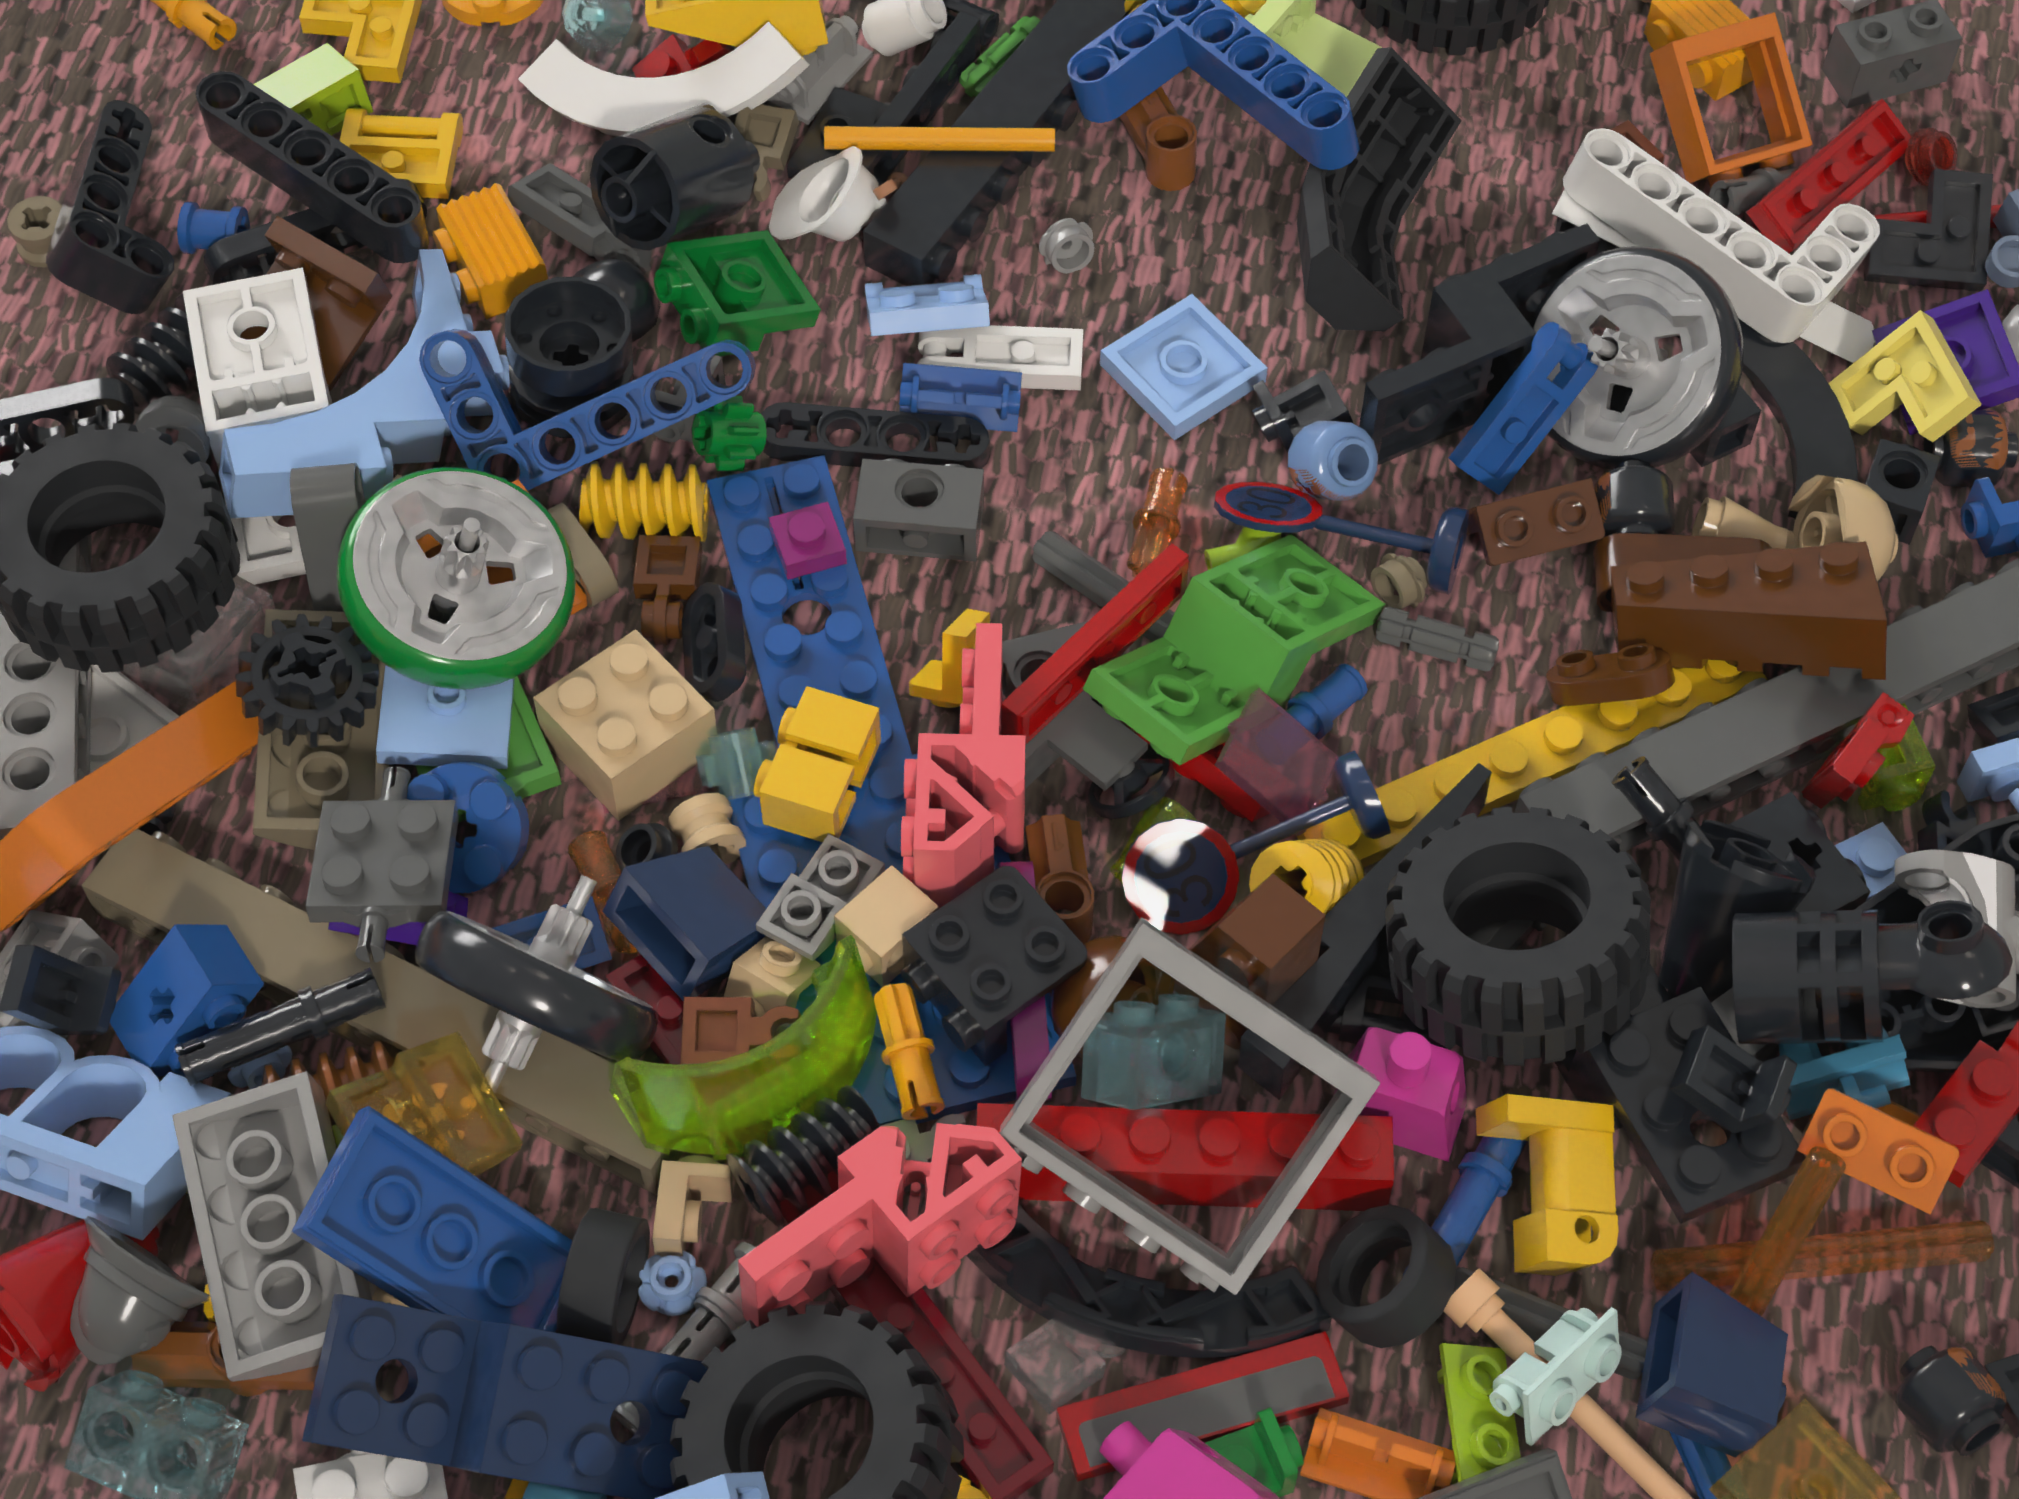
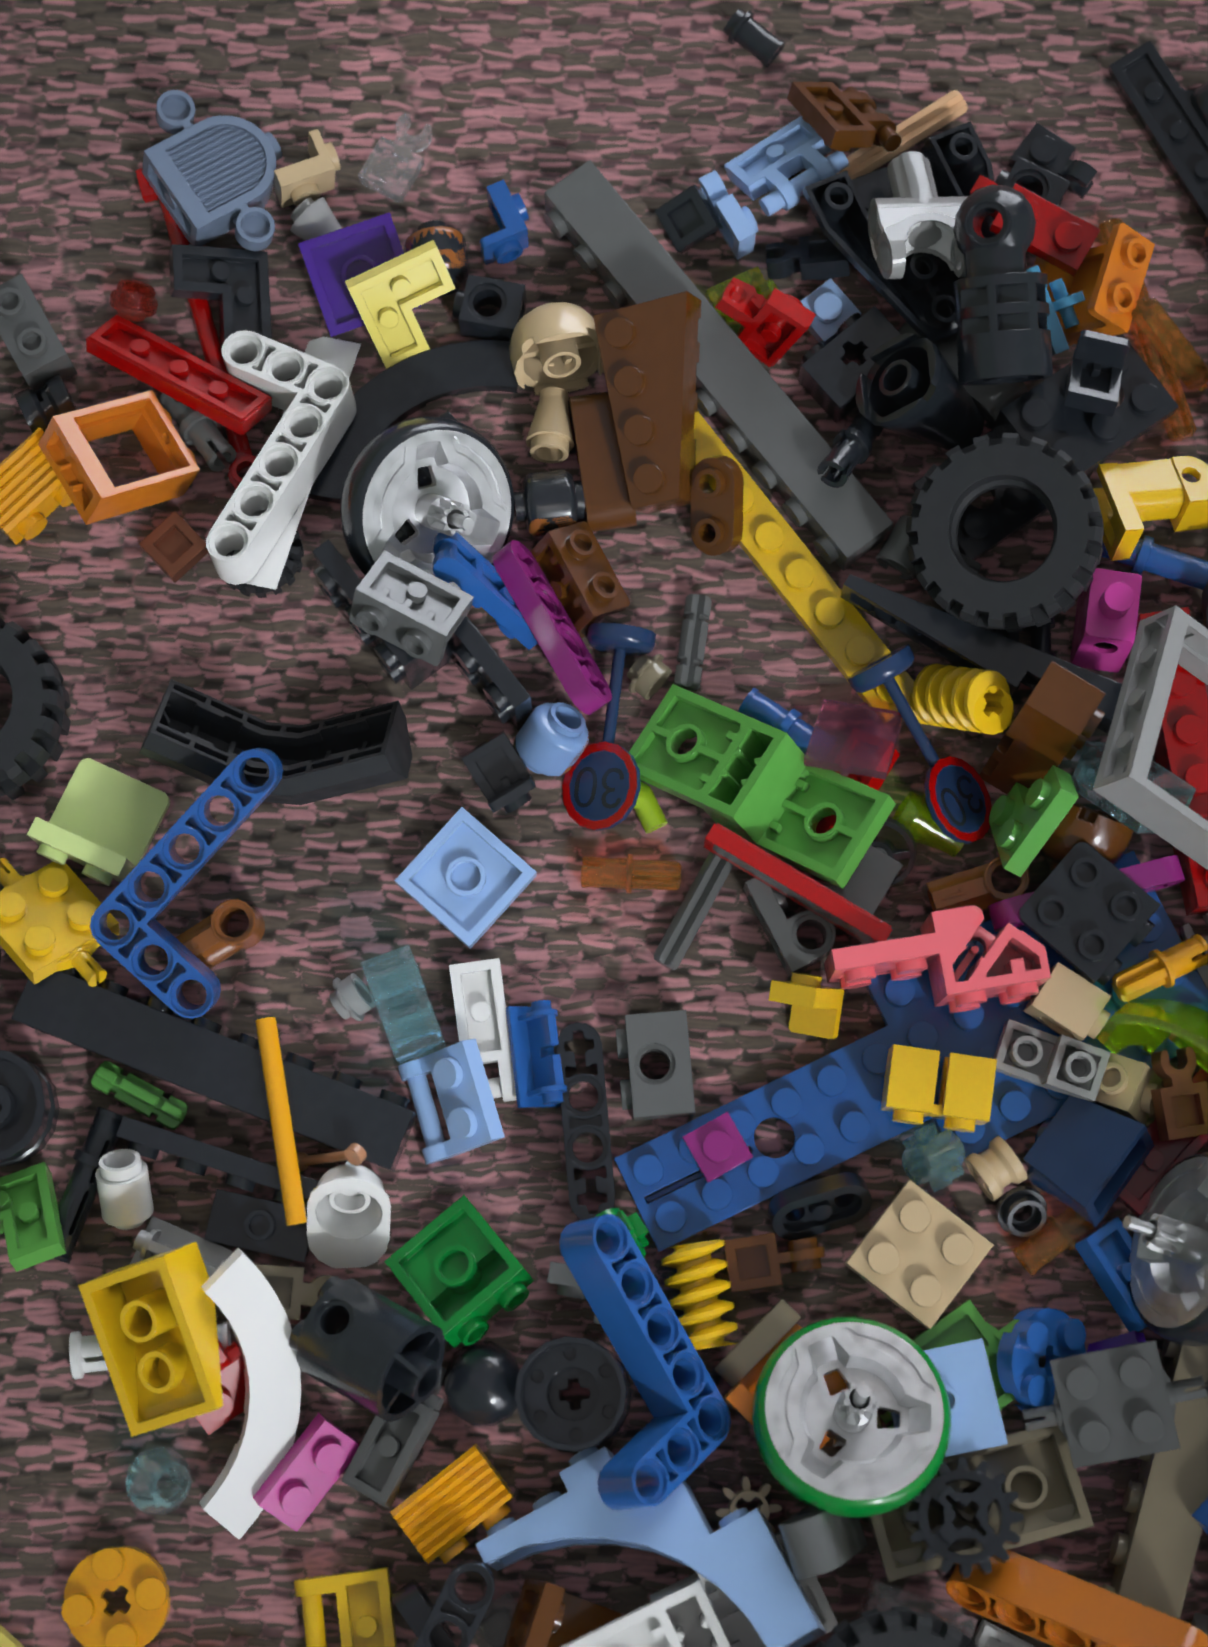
camera: 100 degrees left, 20 degrees up
(560, 132) = (307, 1472): none -> dark pink plate
(1045, 275) = (403, 1004): none -> clear light blue brick
(1115, 898) = (1029, 817): none -> bright green plate
(1472, 467) = (552, 627): none -> magenta beam
(1505, 286) = (409, 608): none -> dark grey bracket
(1812, 69) = (45, 403): none -> black wheel

